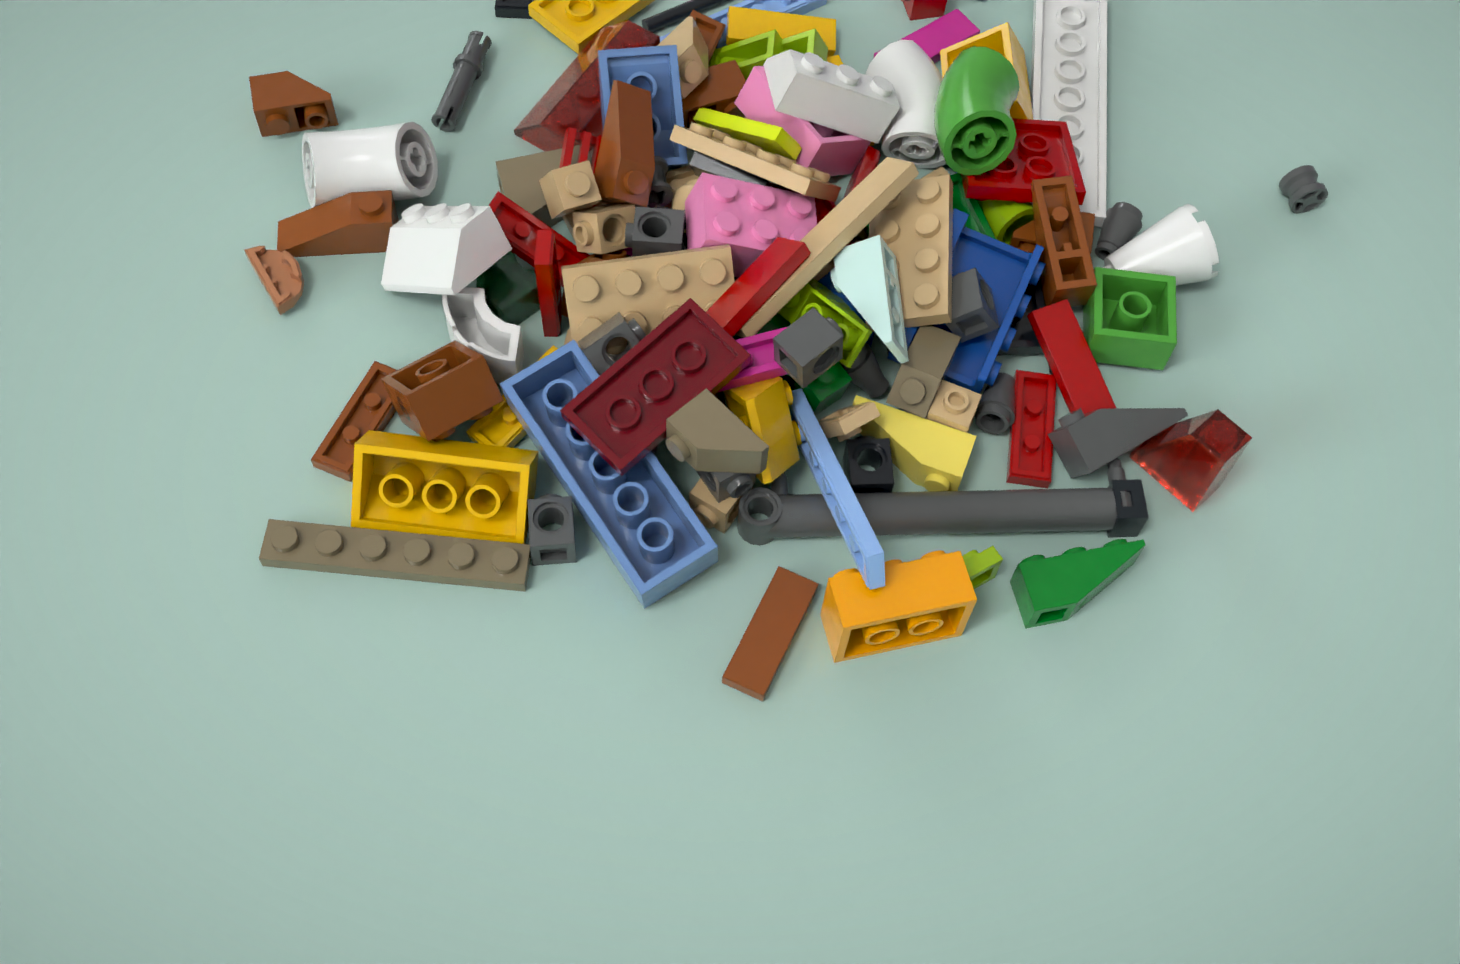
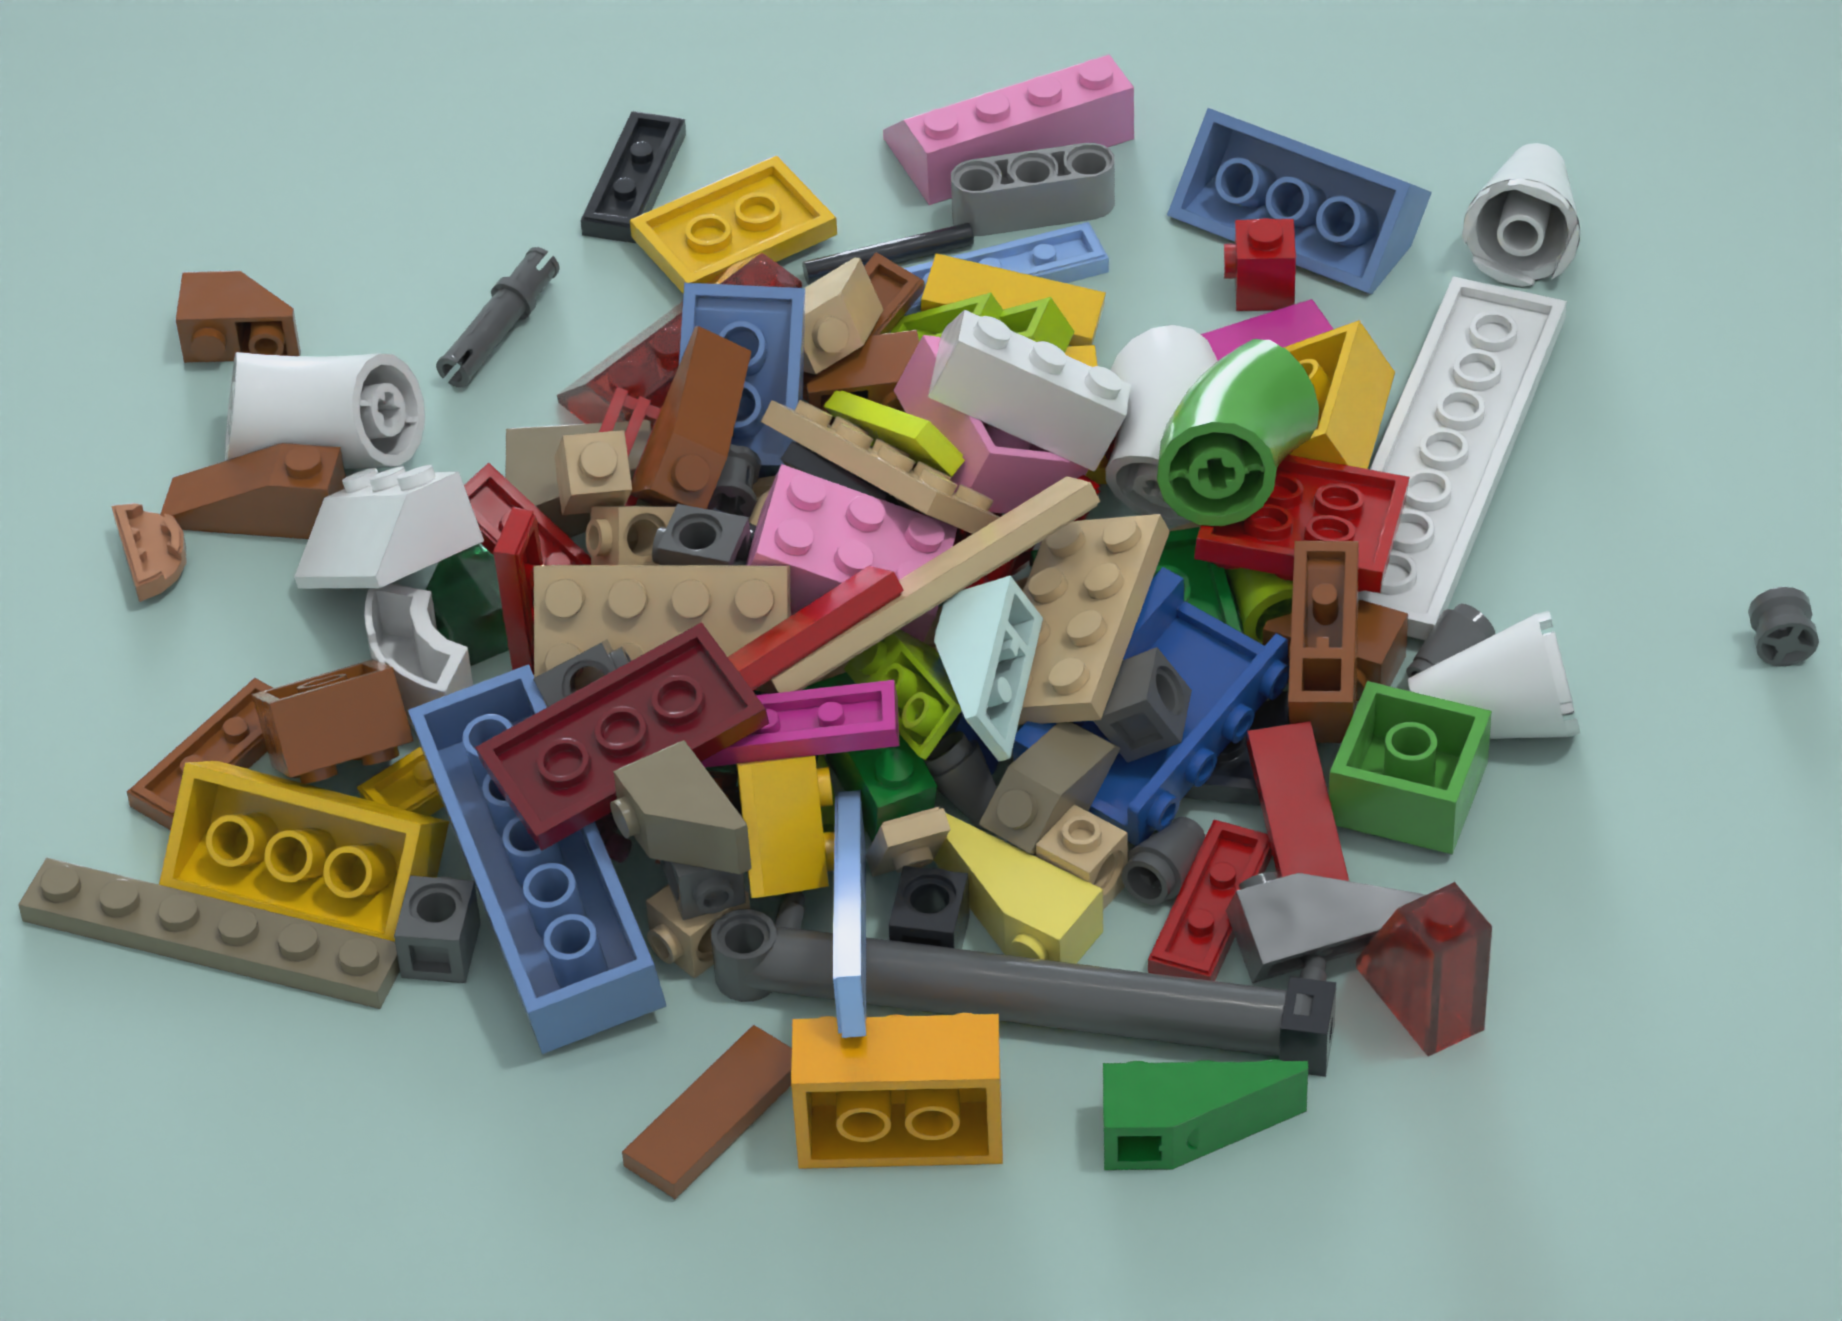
camera: 20 degrees right, 15 degrees down
(809, 347) = (853, 709): dark grey brick -> none
(982, 566) = (1045, 1073): lime plate -> none

